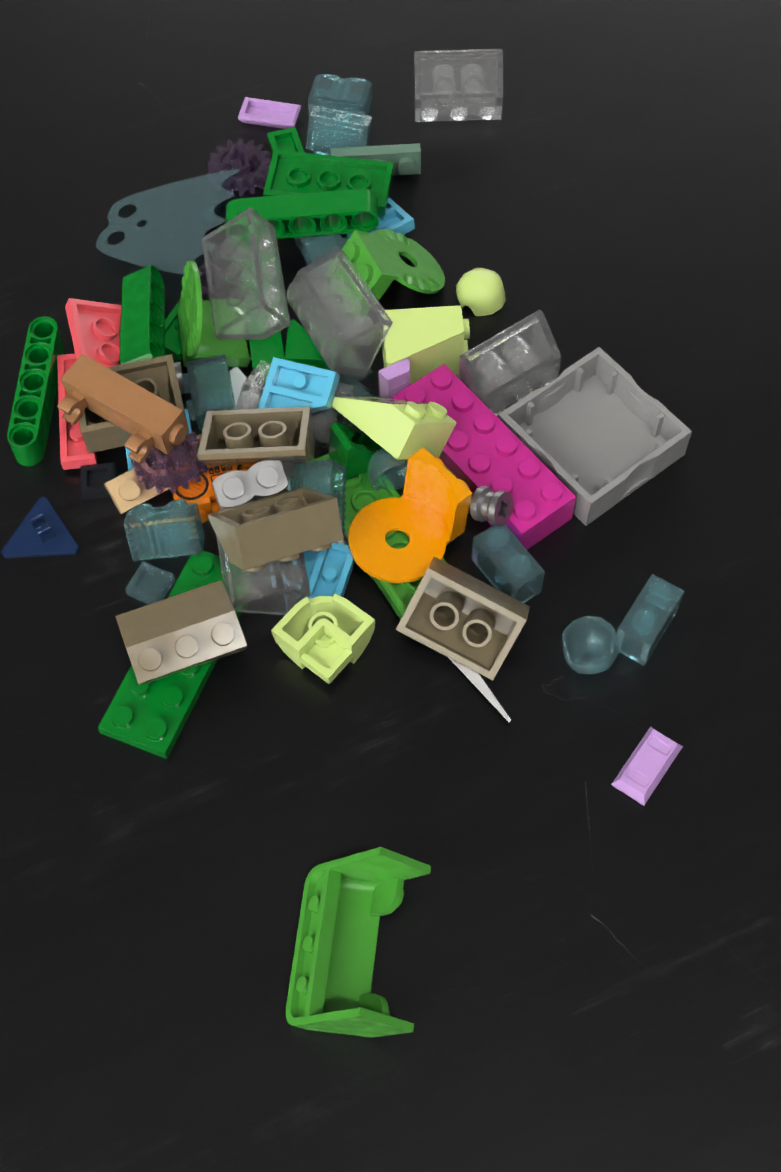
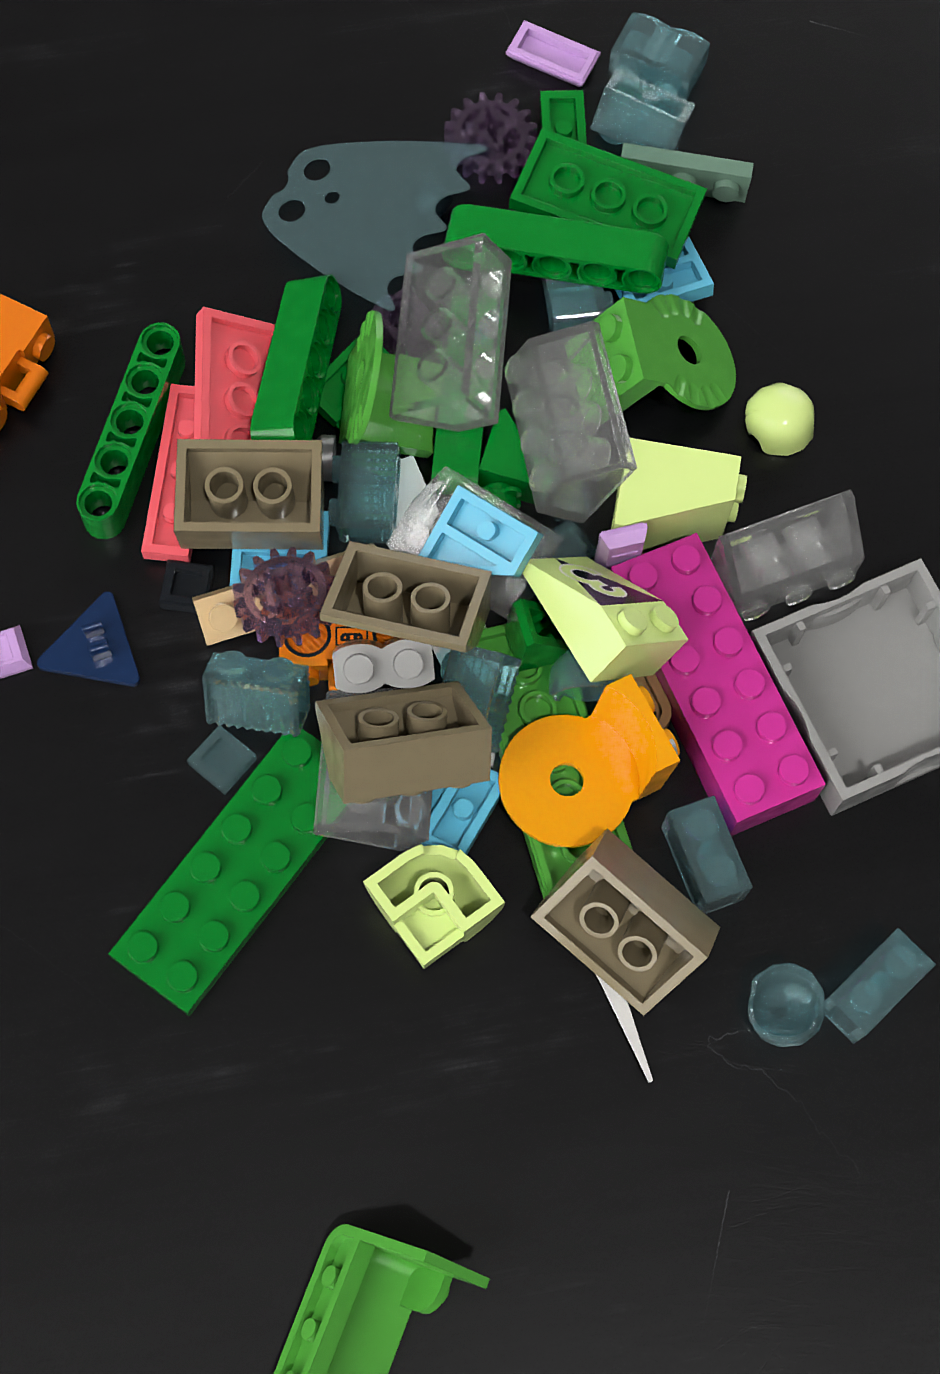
camera: 10 degrees right, 10 degrees up
(125, 404) = (239, 510): medium nougat brick -> none
(181, 632) = (241, 858): dark tan slope -> none
(458, 85) = (833, 78): clear slope -> none
(491, 505) = (704, 775): flat silver wheel -> none
(646, 766) = (816, 1191): lavender tile -> none

